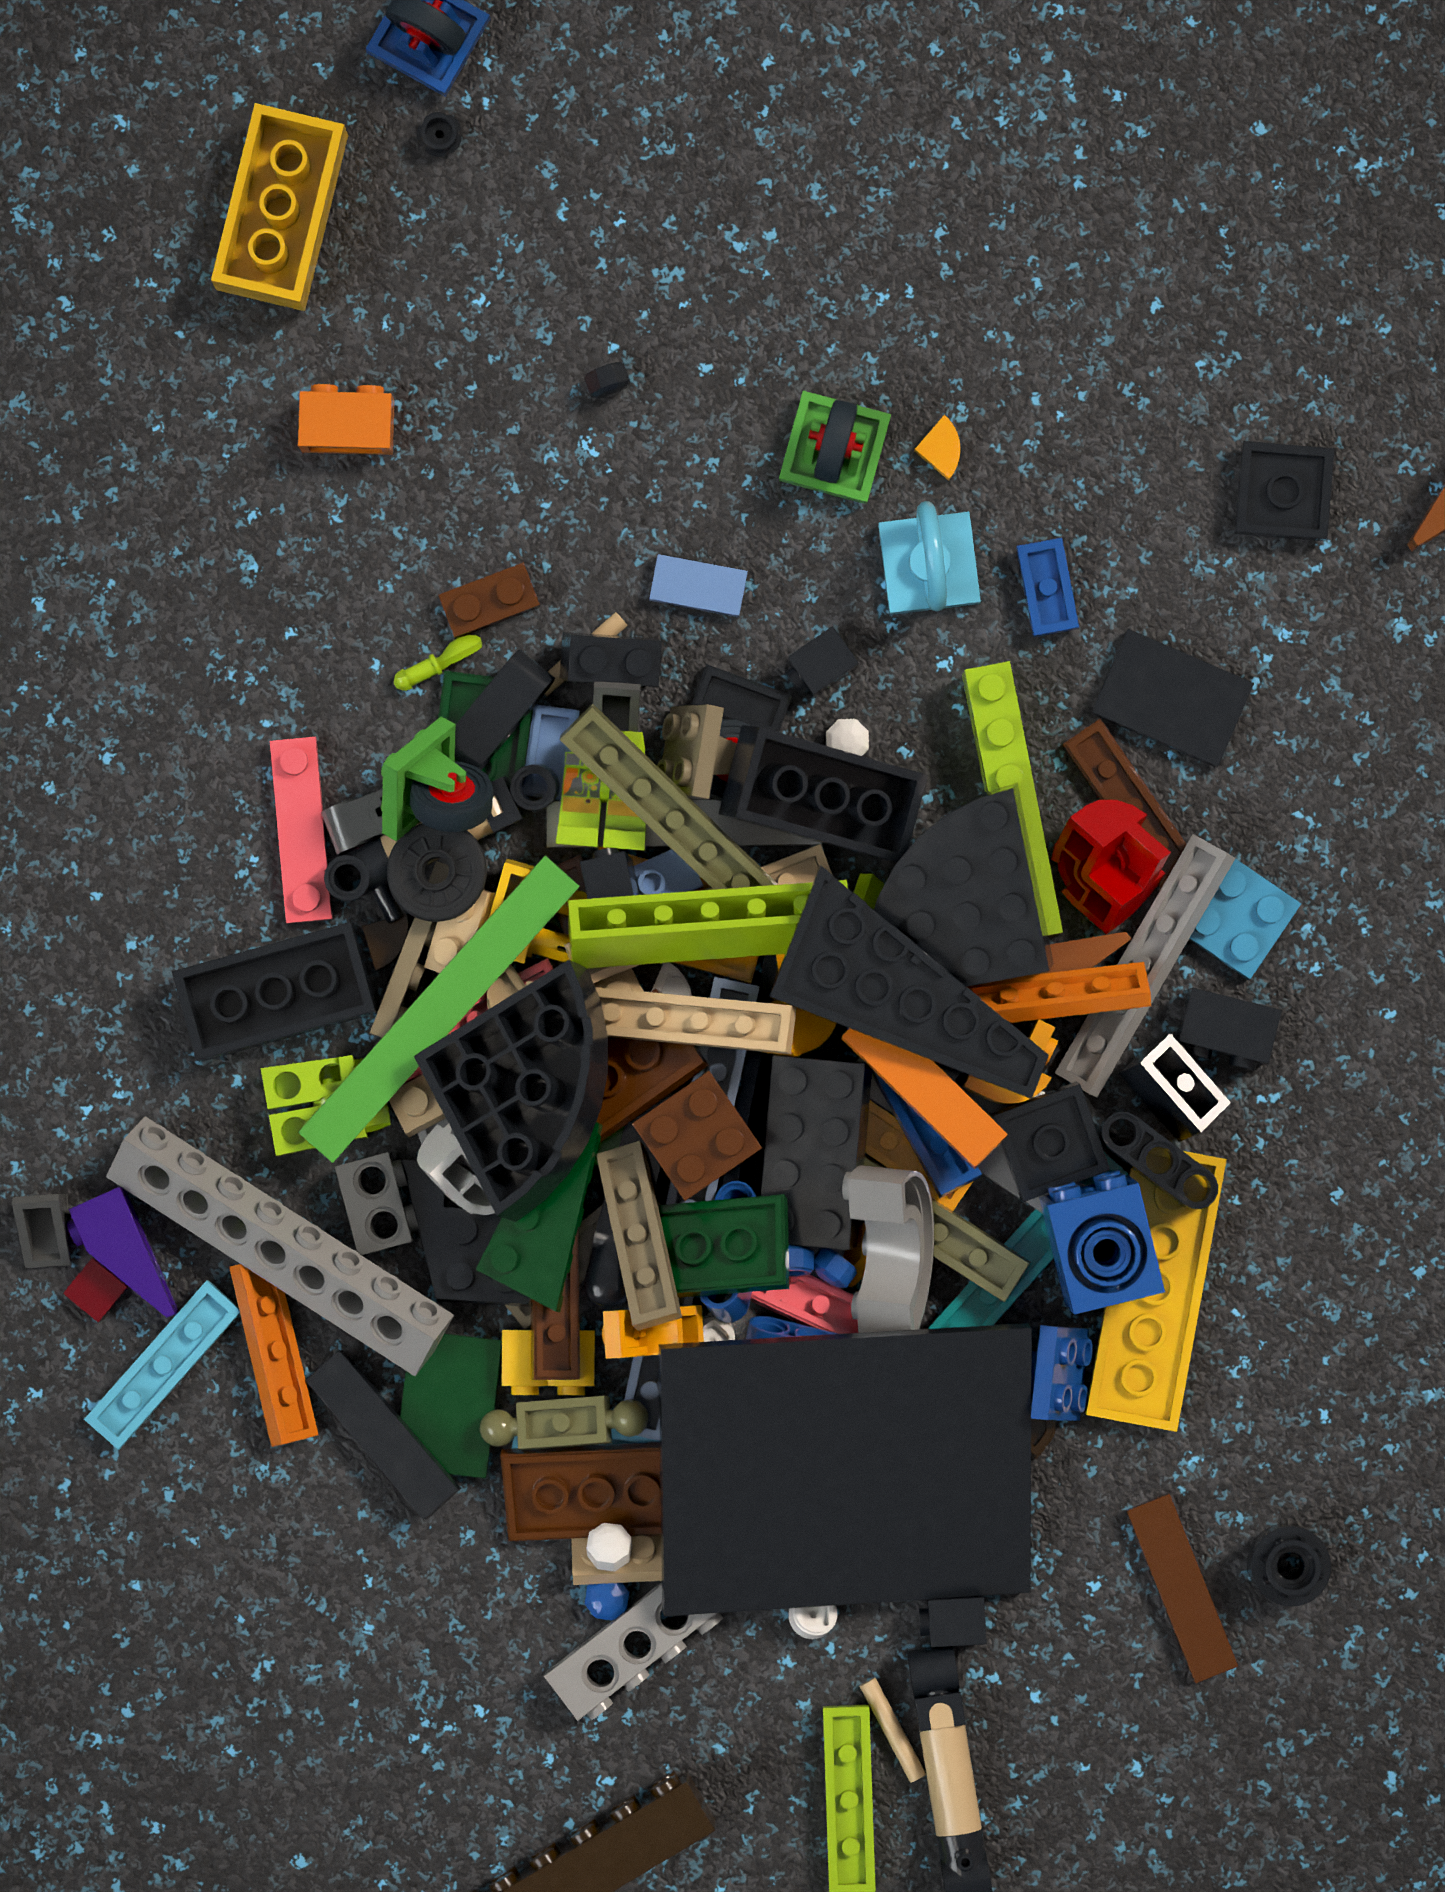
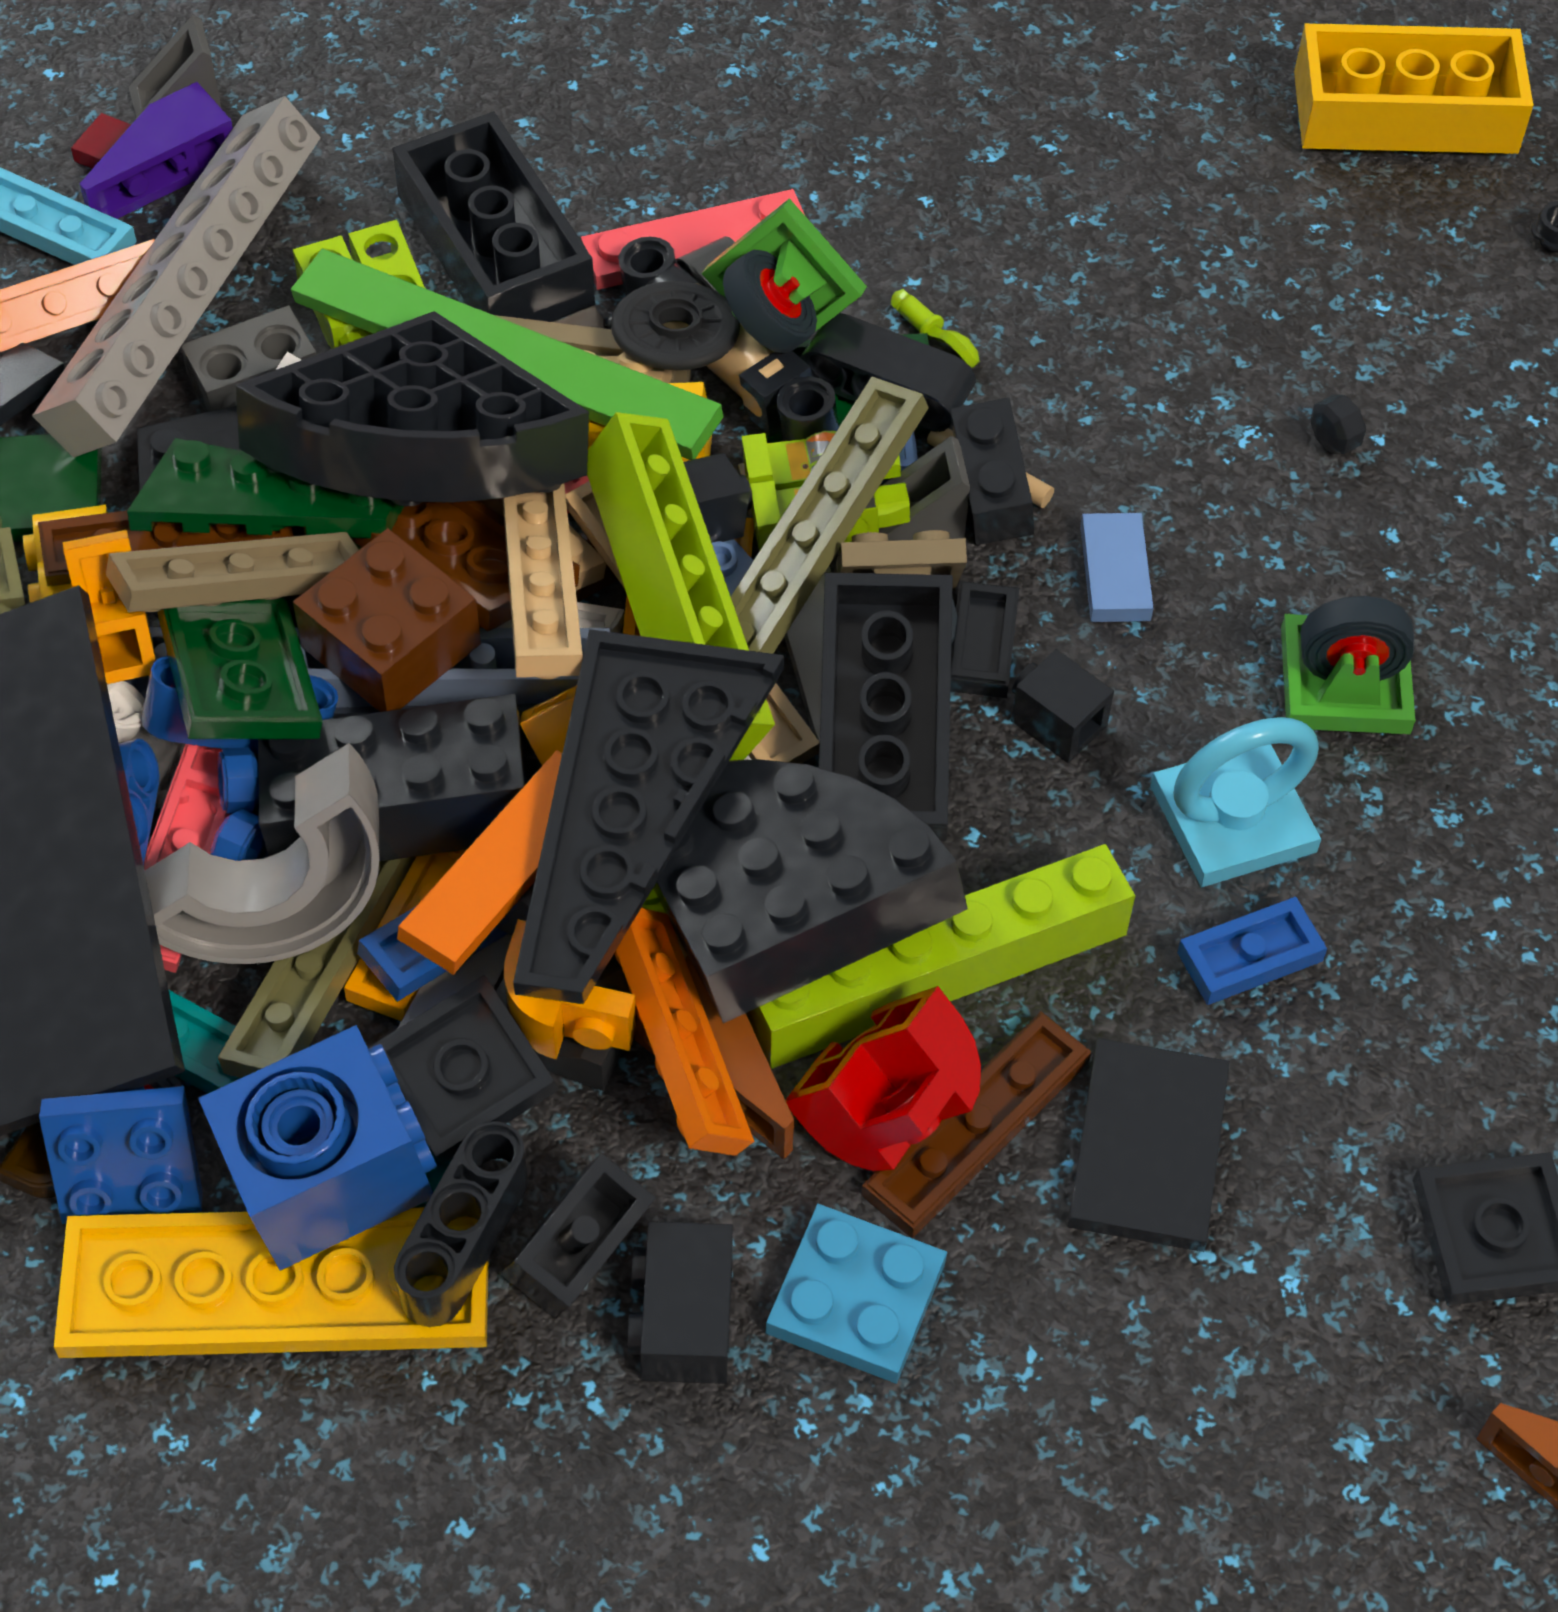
camera: 75 degrees right, 30 degrees down
(346, 420) = (1190, 193): orange brick -> none
(489, 600) = (1026, 367): reddish brown plate -> none
(848, 736) = (971, 760): white tile -> none
(941, 448) = (1393, 797): light orange tile -> none
(1156, 944) = (767, 1169): light grey plate -> none

